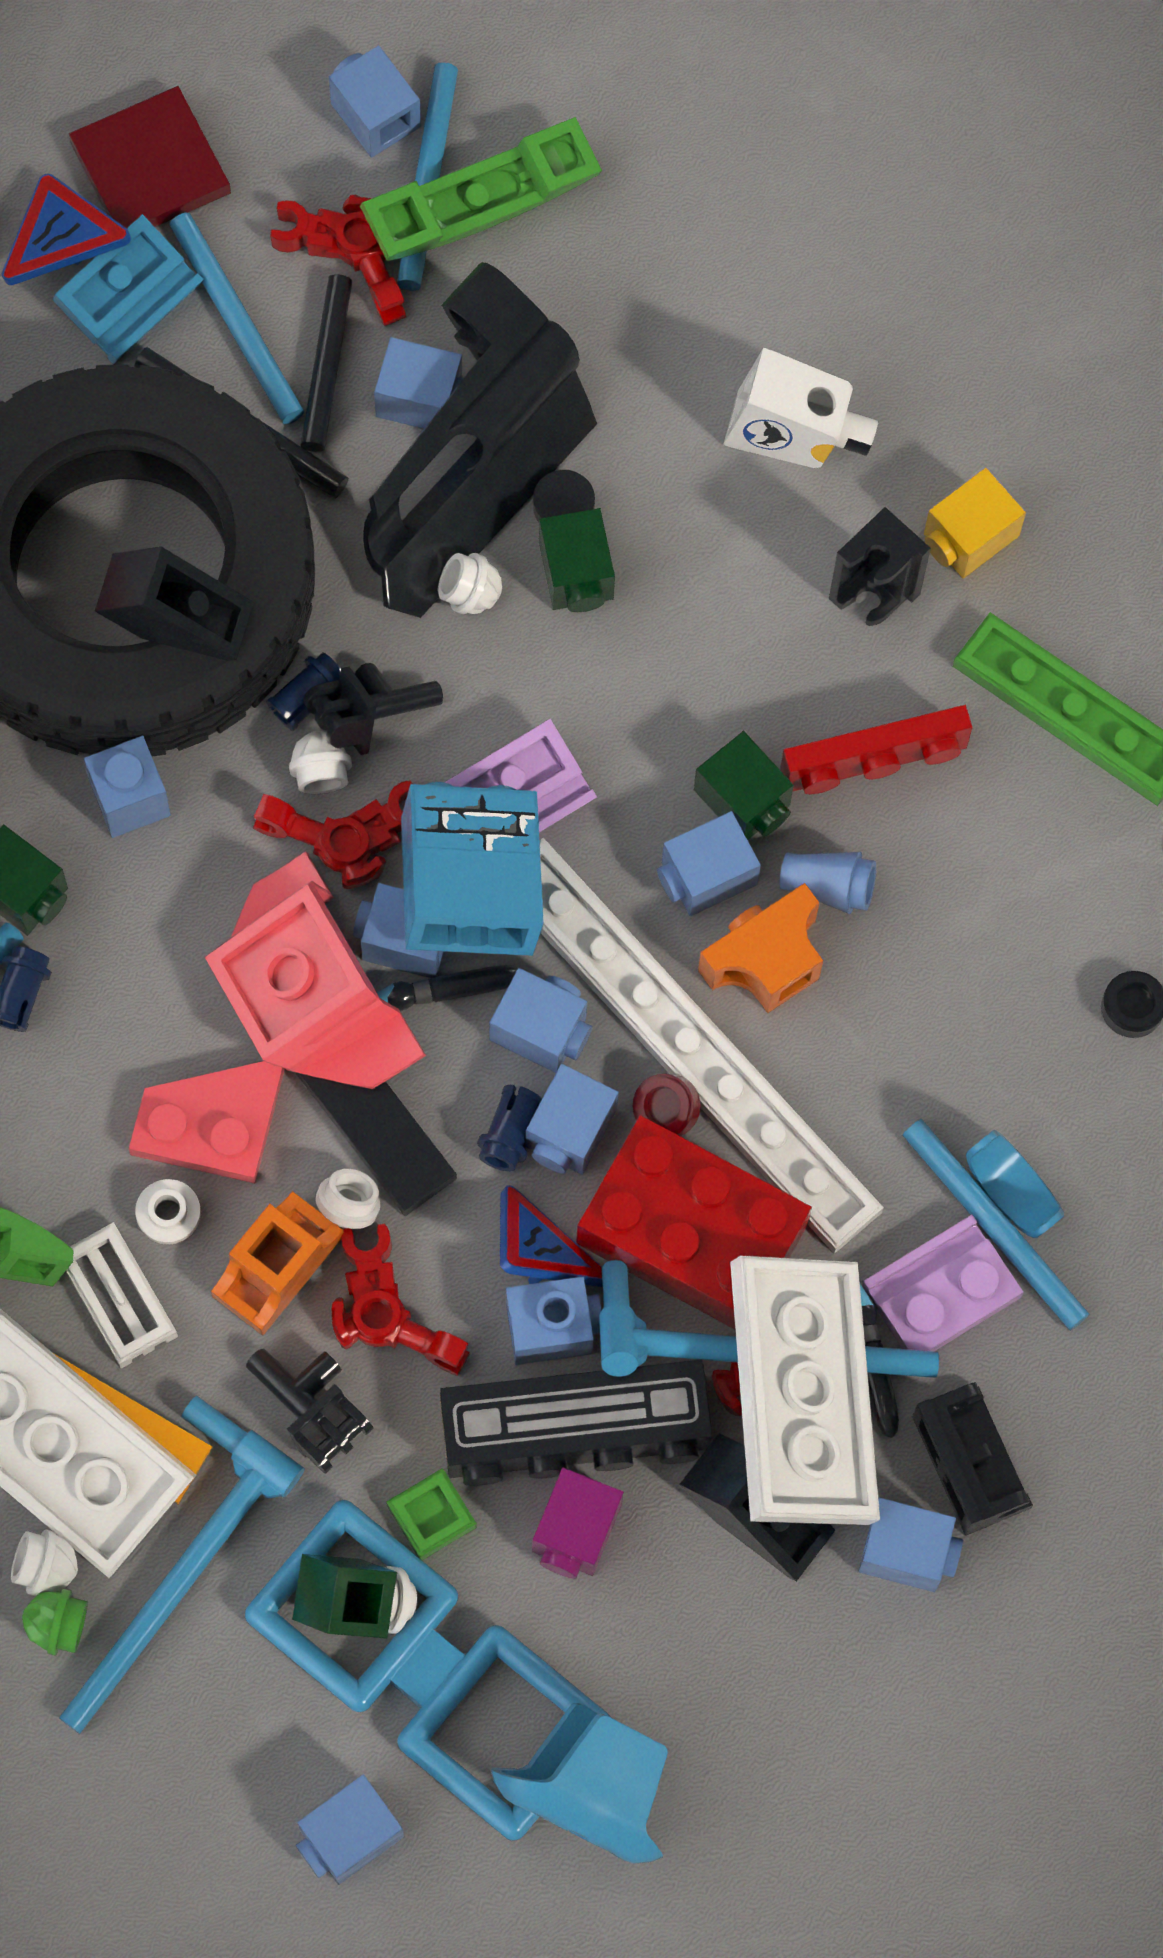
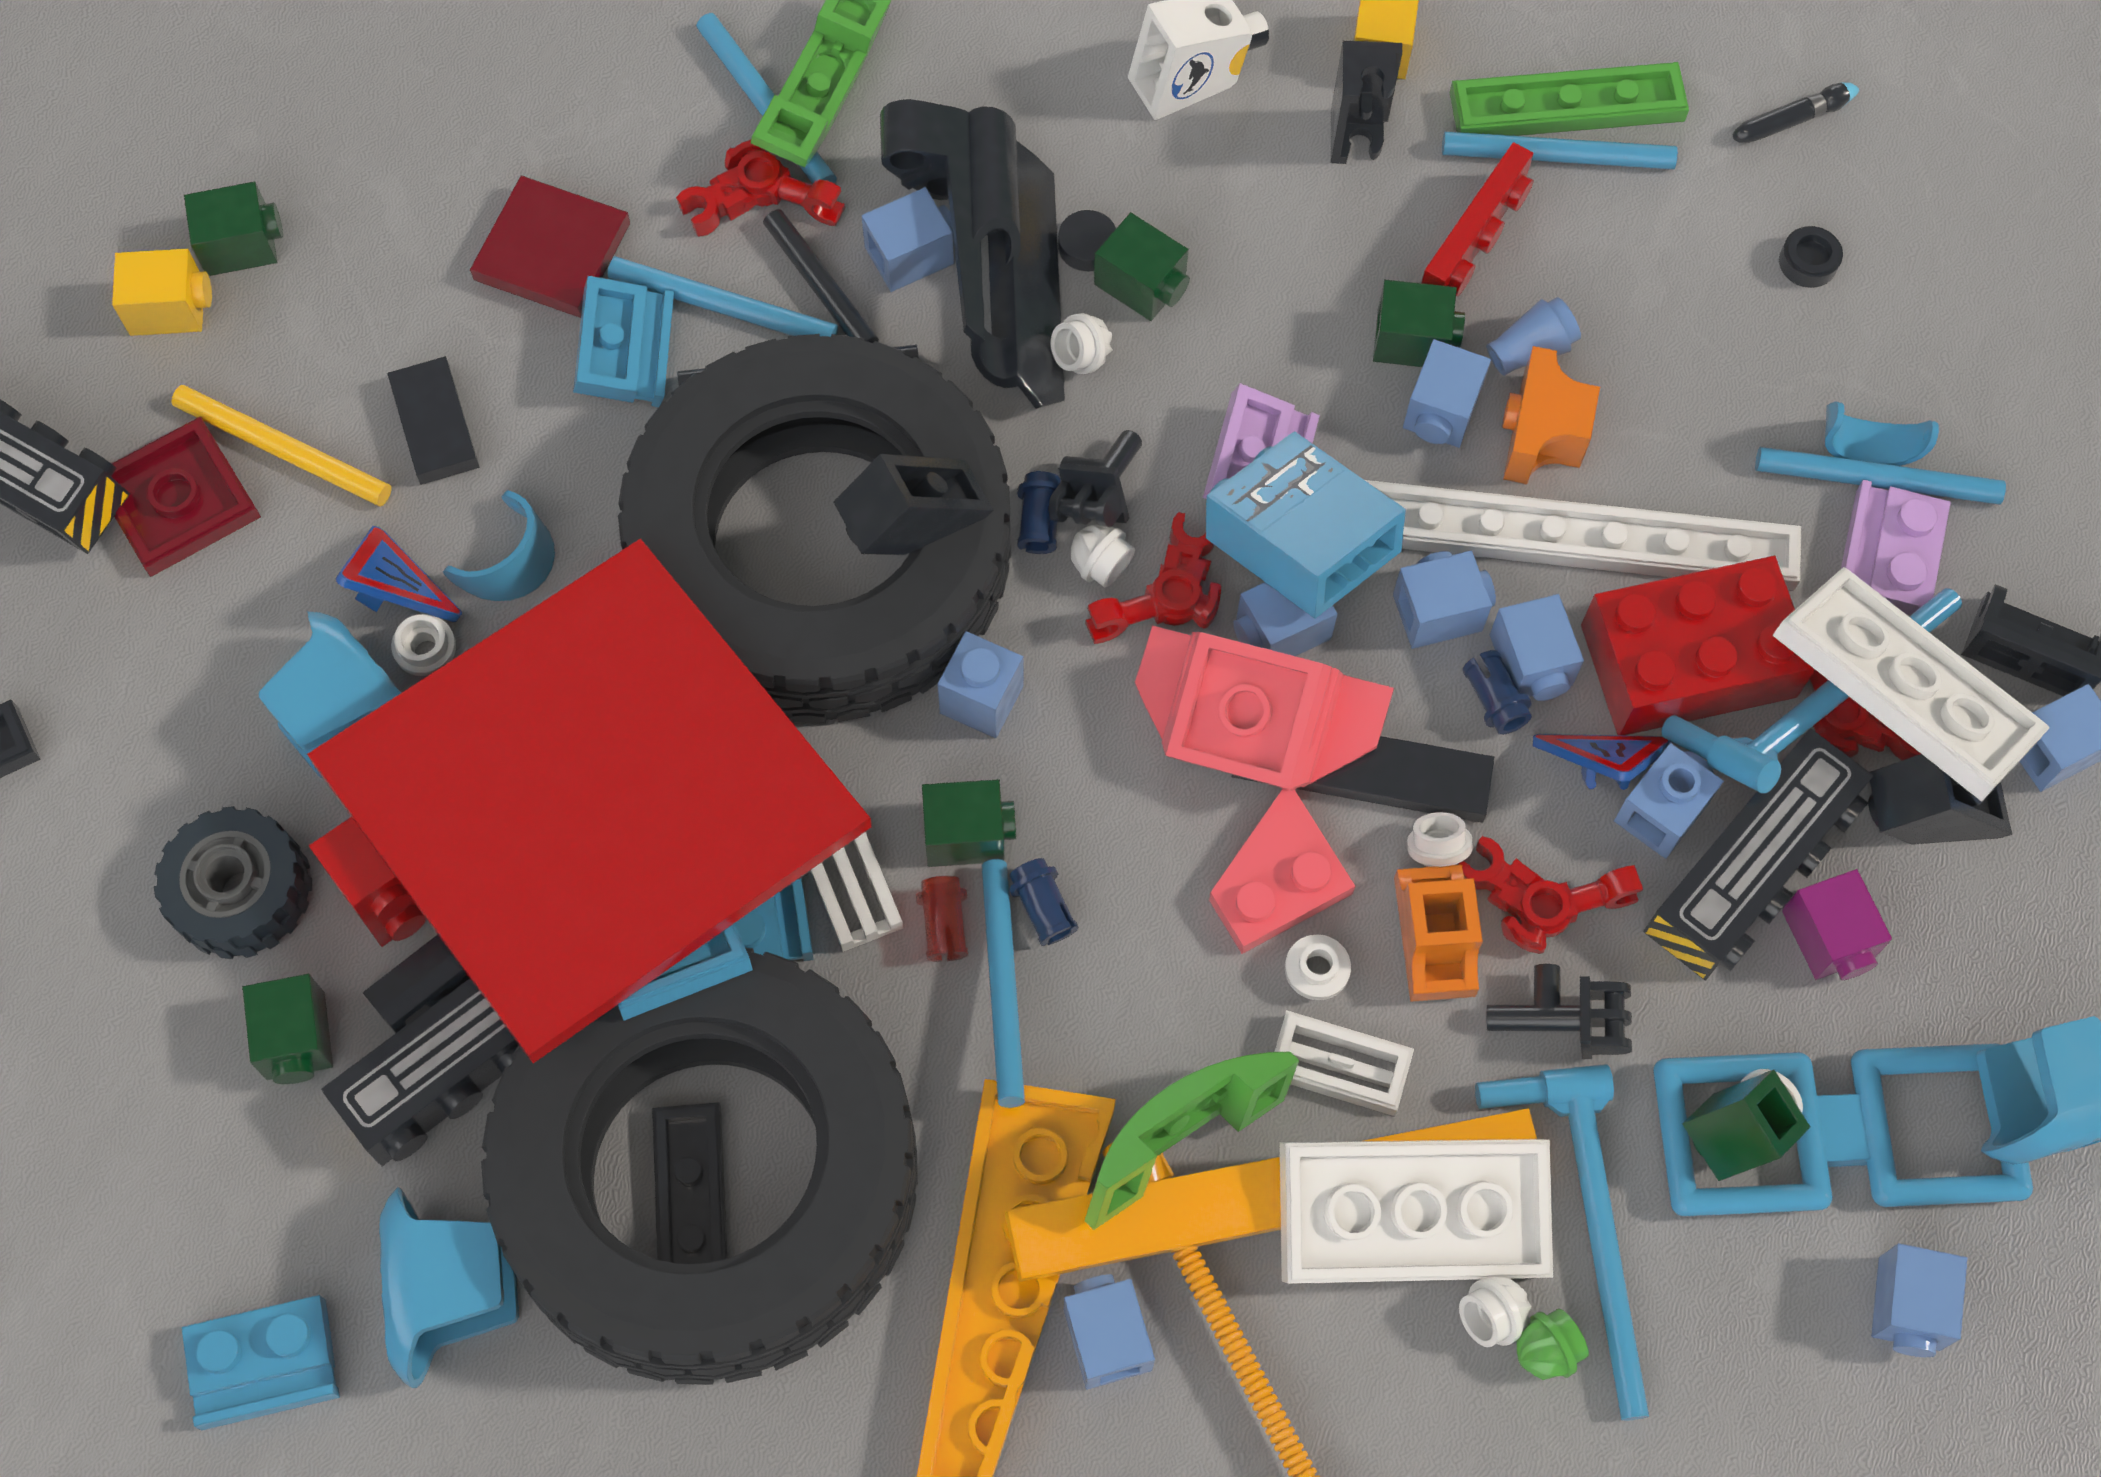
camera: 40 degrees left, 5 degrees down
(60, 232) = (535, 337): piece -> none
(374, 100) = (678, 75): medium blue brick -> none
(431, 1514) = (1724, 1016): bright green tile -> none
(448, 986) = (1356, 624): black piece -> none
(668, 1102) = (1582, 578): dark red tile -> none
(1021, 743) = (1562, 150): none -> dark azure bar

